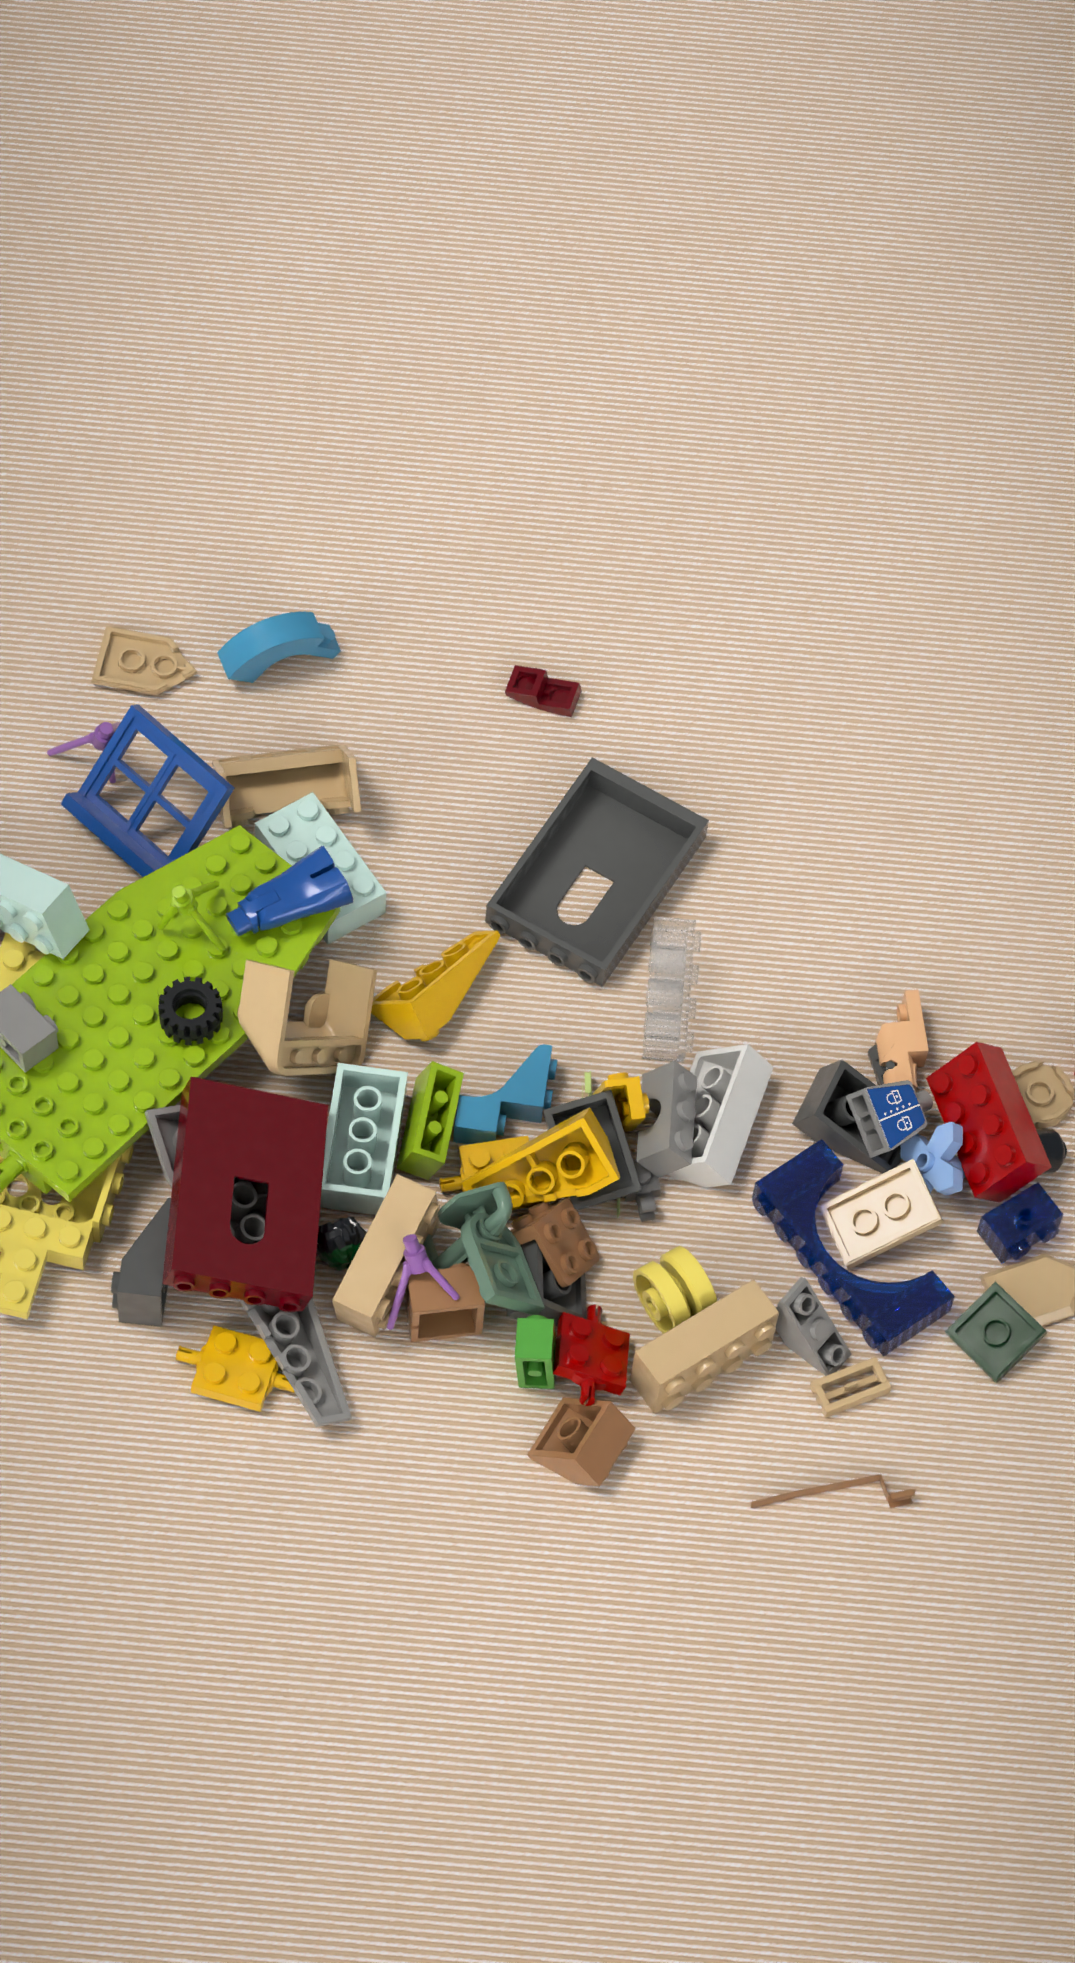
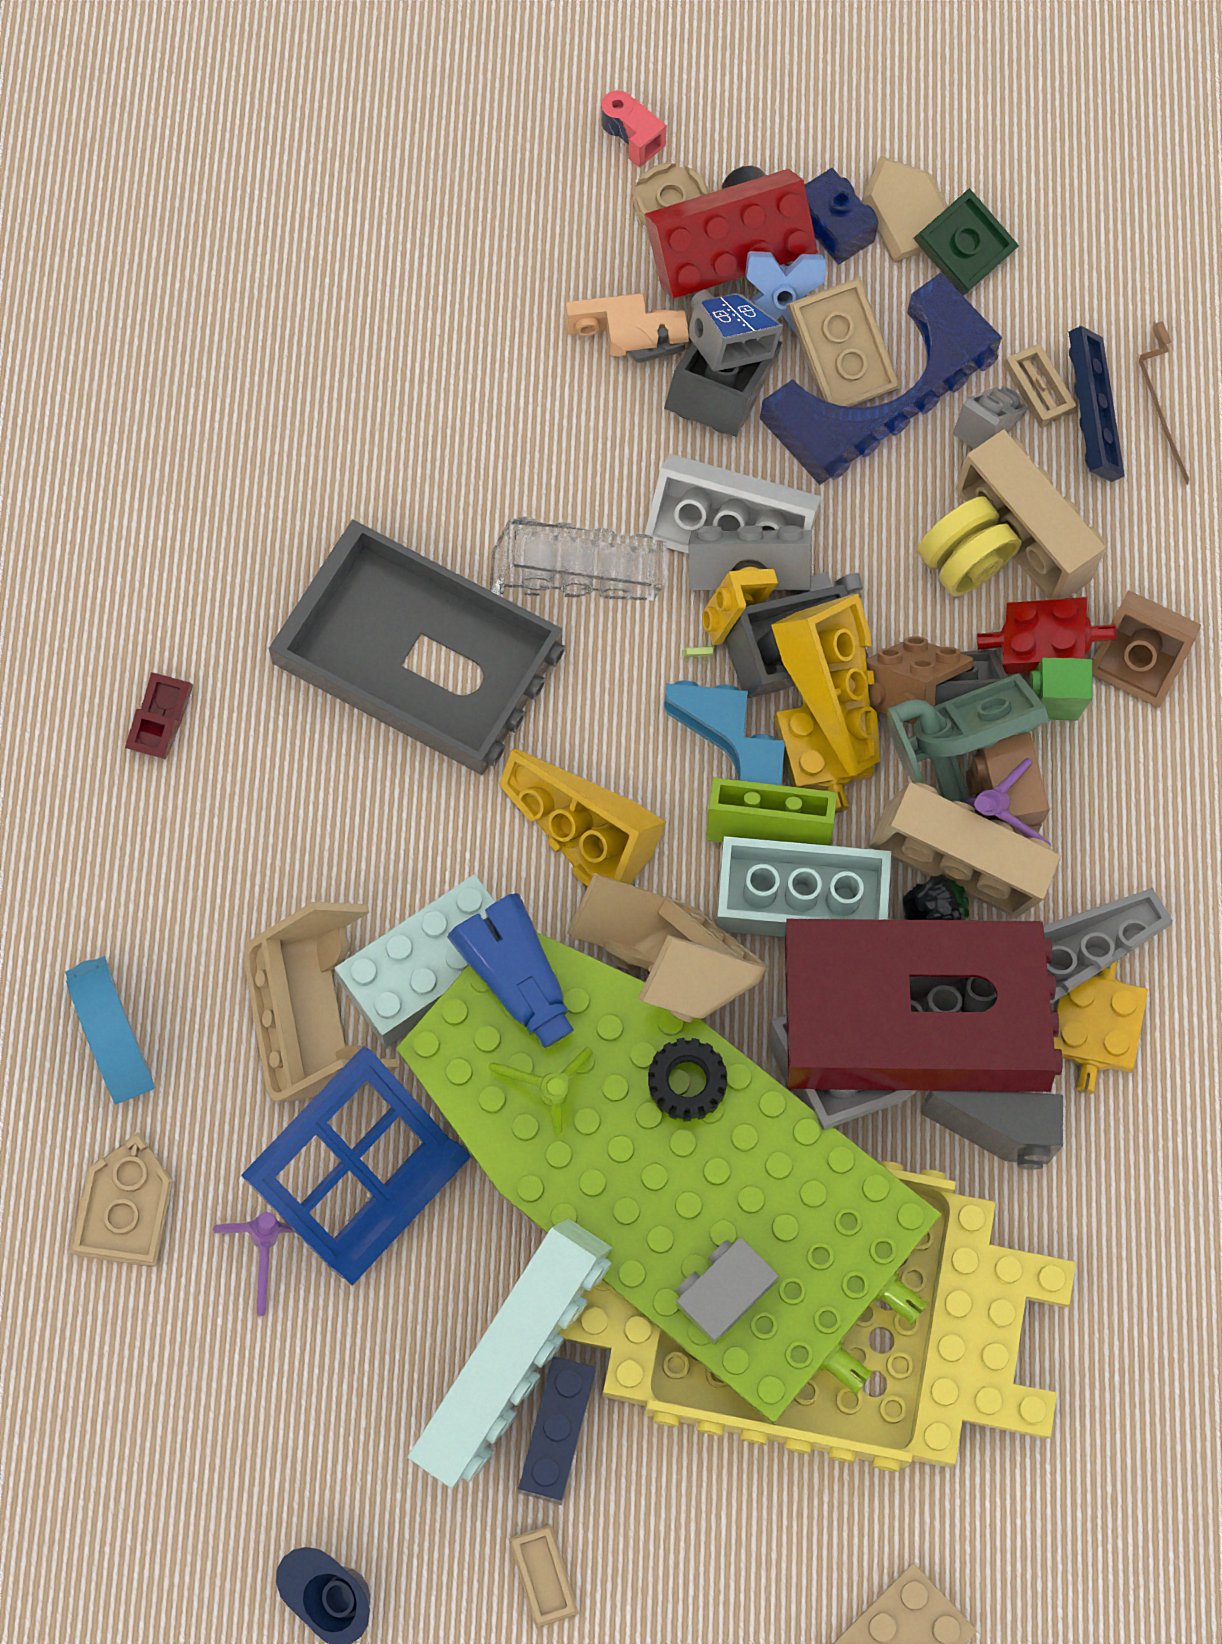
camera: 90 degrees left, 10 degrees up
(827, 1427) = (1096, 404): none -> dark blue plate

